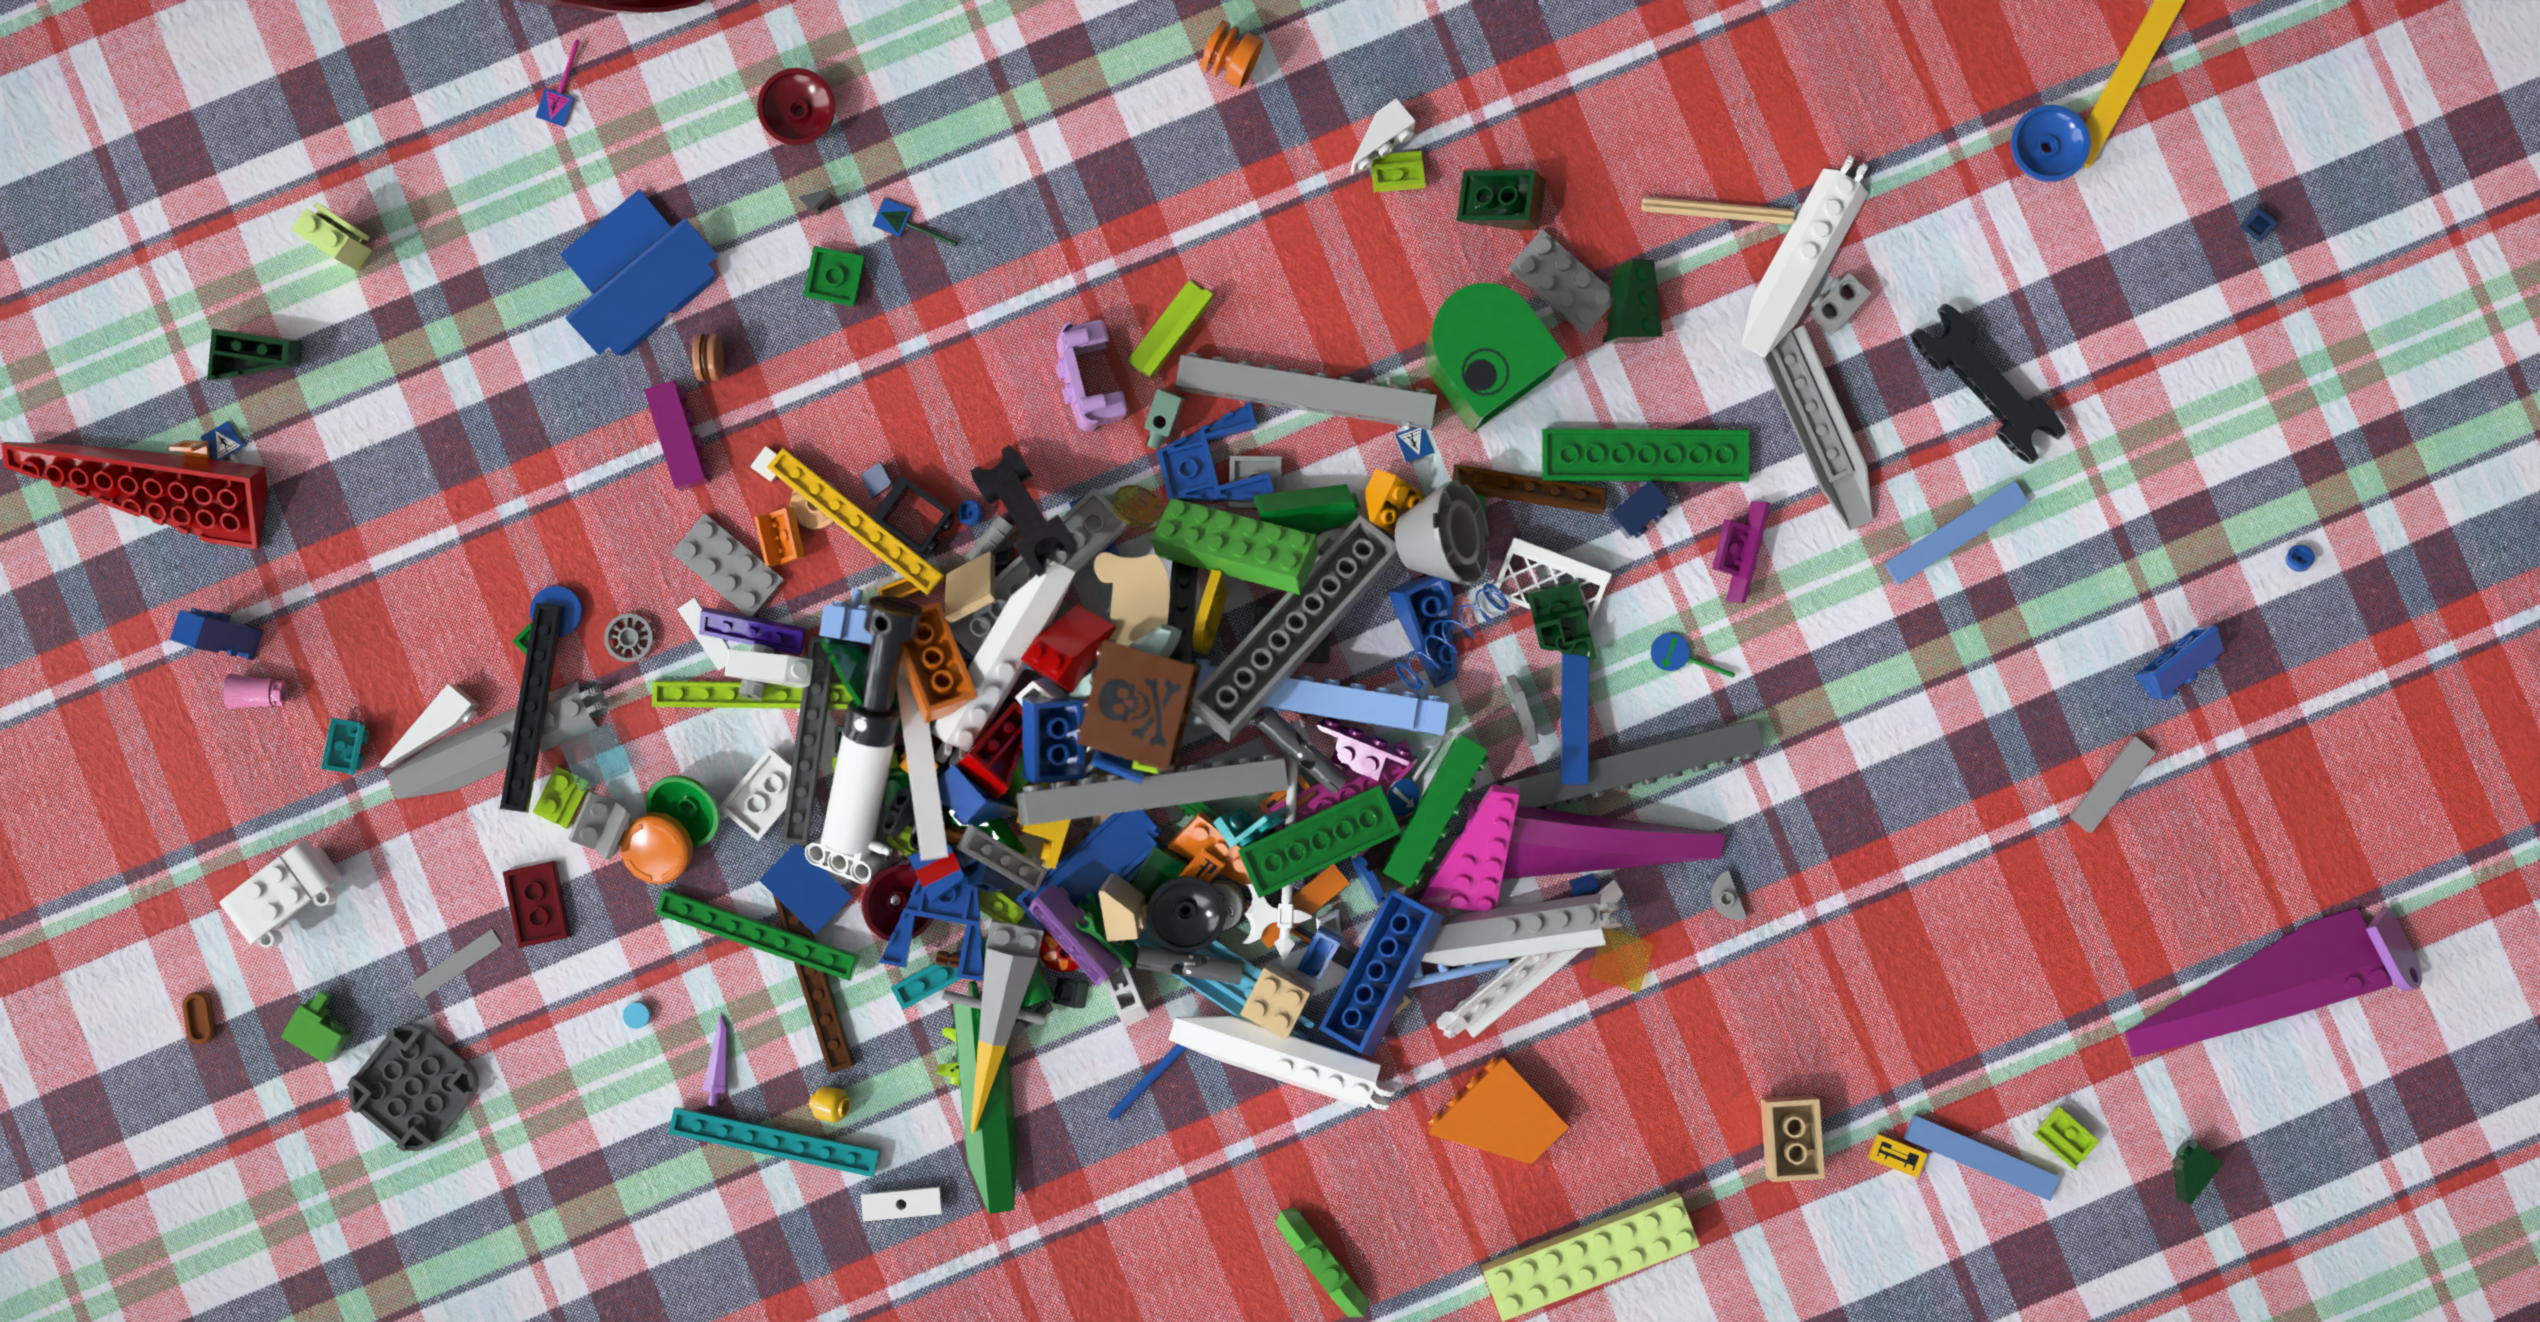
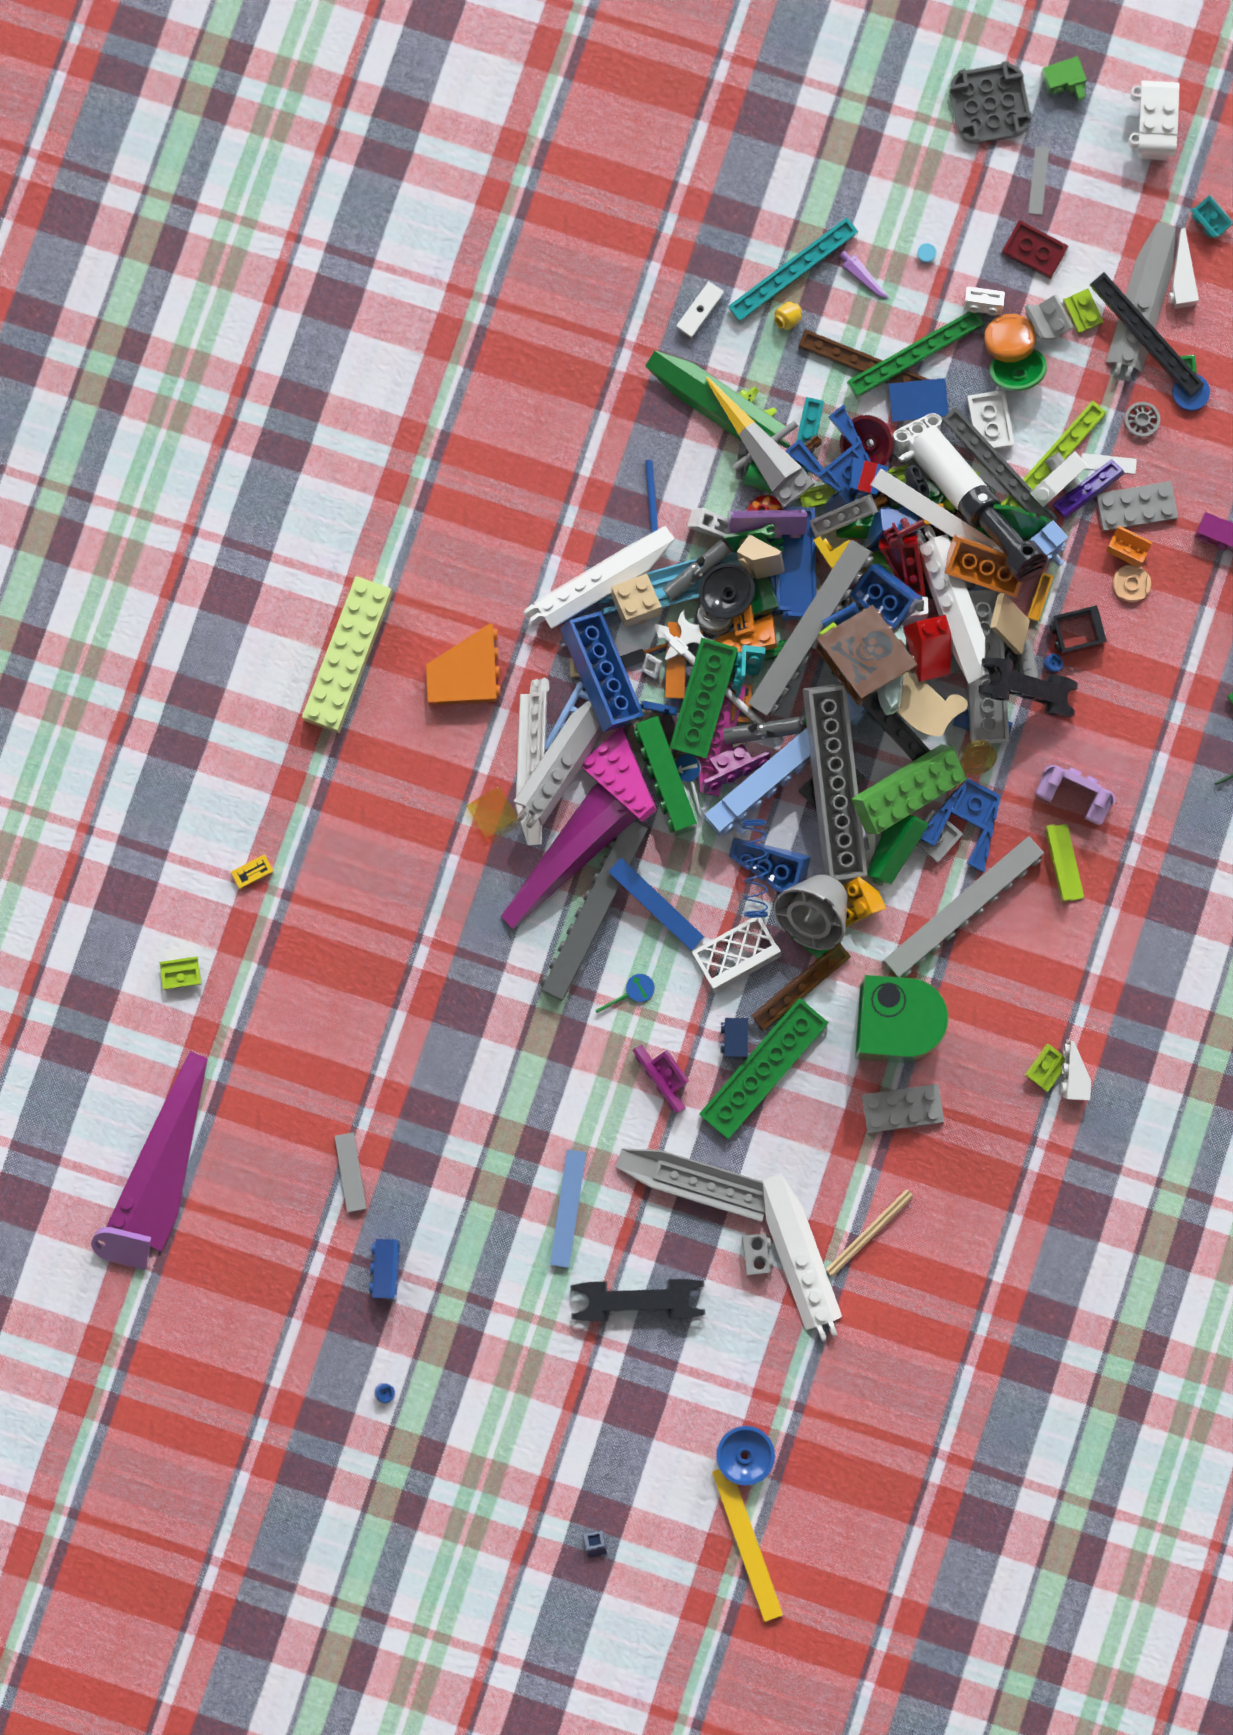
camera: 135 degrees right, 5 degrees down
(199, 1017) = (1126, 21): dark orange tile -> none
(594, 757) = (1090, 346): clear light blue tile -> none
(638, 909) = (984, 301): none -> white bracket
(761, 463) = (1176, 575): white tile -> none
(855, 522) = (1102, 595): yellow tile -> none
(877, 479) = (1116, 628): slope -> none
(983, 782) = (894, 536): none -> dark red arm
(1071, 992) = (736, 496): black slope -> none
(1166, 405) = (1017, 815): sand green torso -> none
(1210, 613) = (882, 744): yellow tile -> none
(1229, 53) = (1197, 1026): orange wheel -> none
(1319, 953) = (641, 648): blue tile -> none
(1322, 1262) = (470, 507): bright green brick -> none
(1412, 441) = (883, 945): piece -> none
(1502, 199) = (980, 1113): dark green slope -> none
(1522, 709) = (679, 874): light grey tile -> none
(1561, 619) = (711, 939): dark green slope -> none
(1584, 885) = (551, 826): blue slope -> none
(1634, 304) = (856, 1134): dark green wedge -> none
(1725, 897) = (475, 899): light grey plate -> none
(1792, 1138) = (314, 819): tan brick -> none
(1981, 1157) = (210, 917): medium blue tile -> none
(2193, 1170) = (101, 1029): dark green slope -> none

